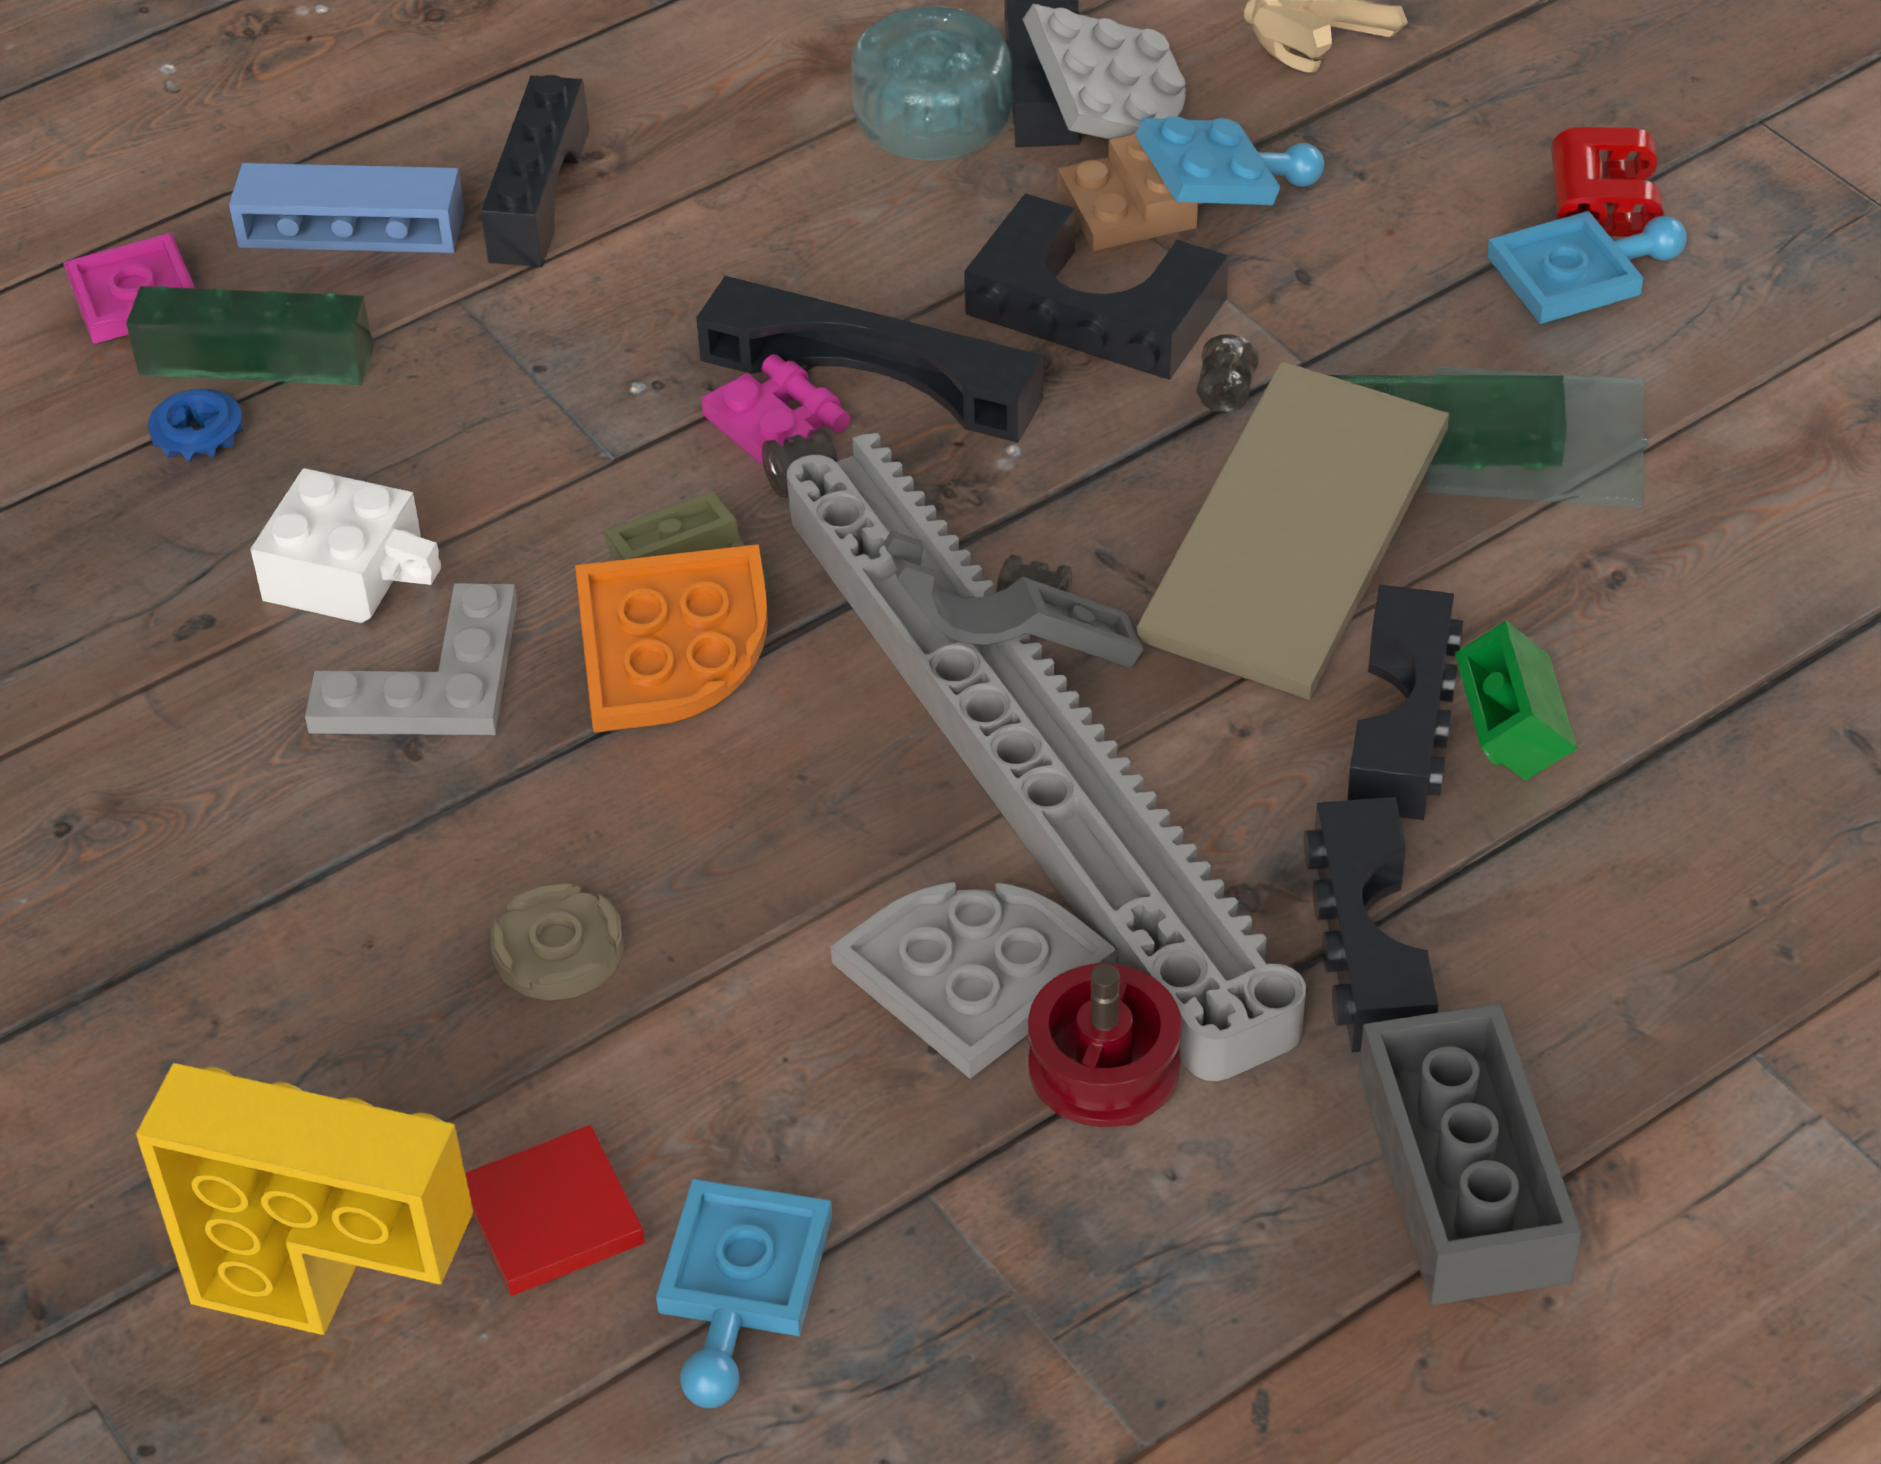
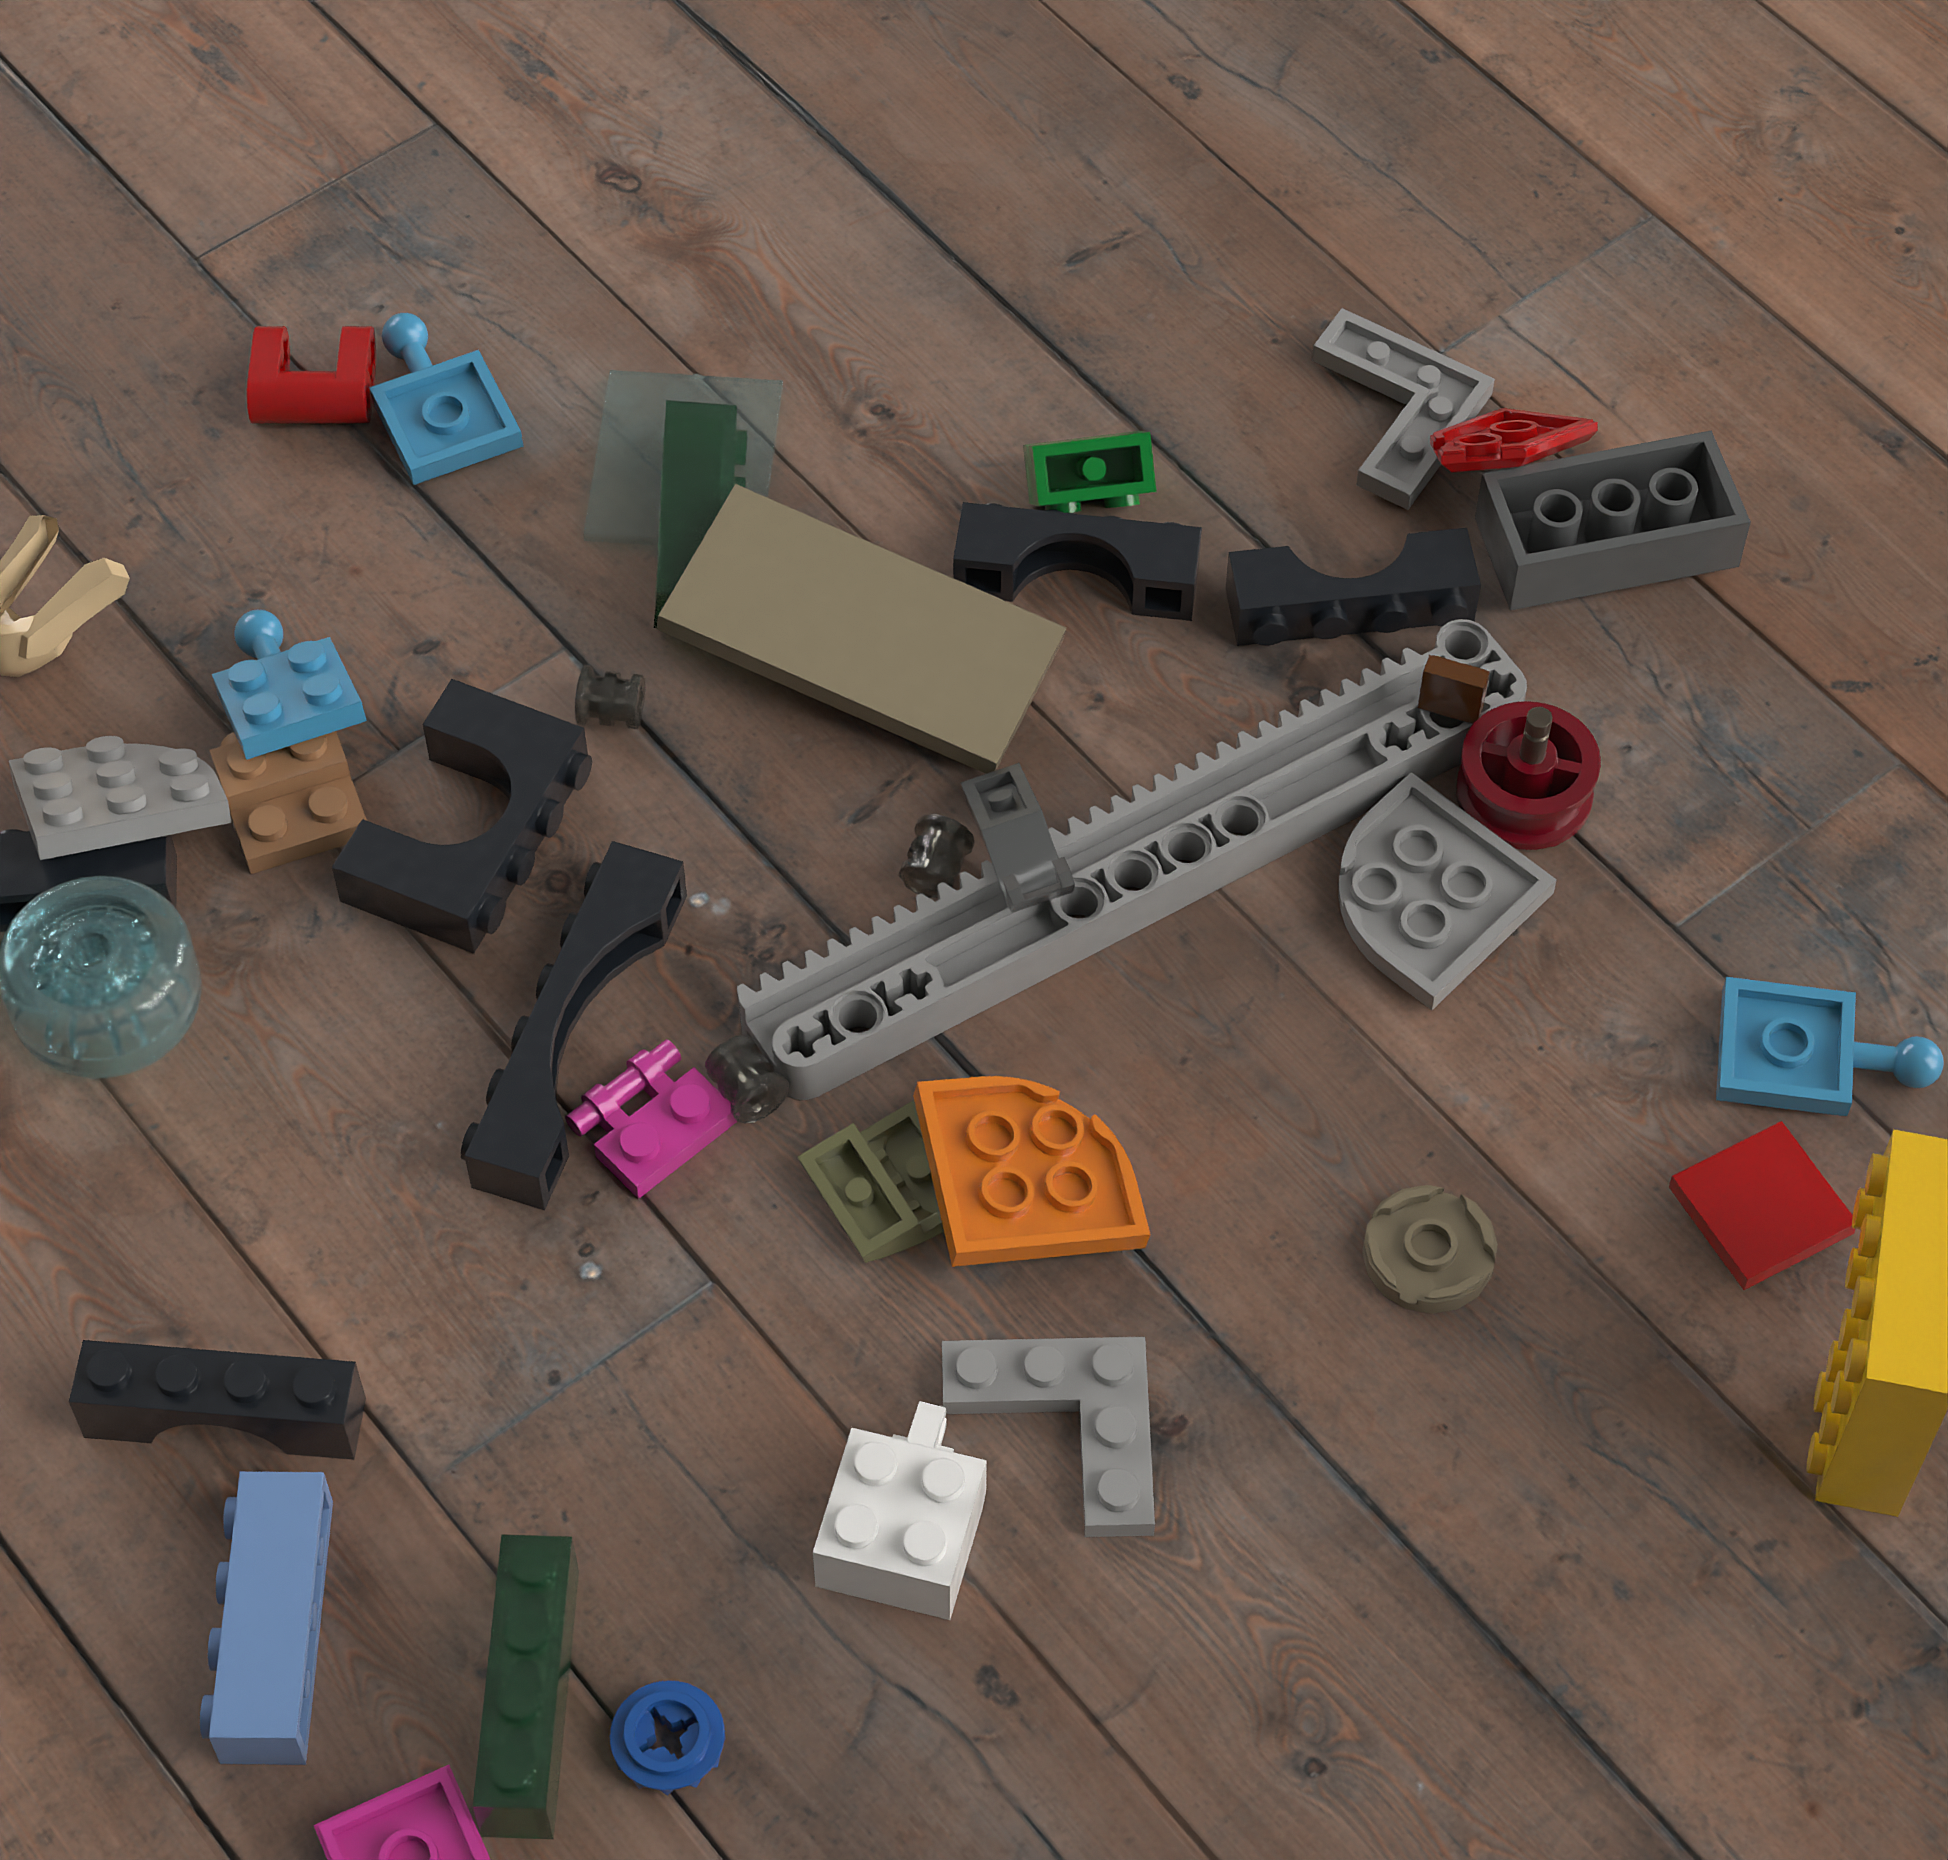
camera: 95 degrees left, 10 degrees up
(1184, 946) = (1453, 689): none -> reddish brown tile
(1571, 1047) = (1508, 439): none -> red tile
(1661, 1030) = (1430, 384): none -> light grey plate

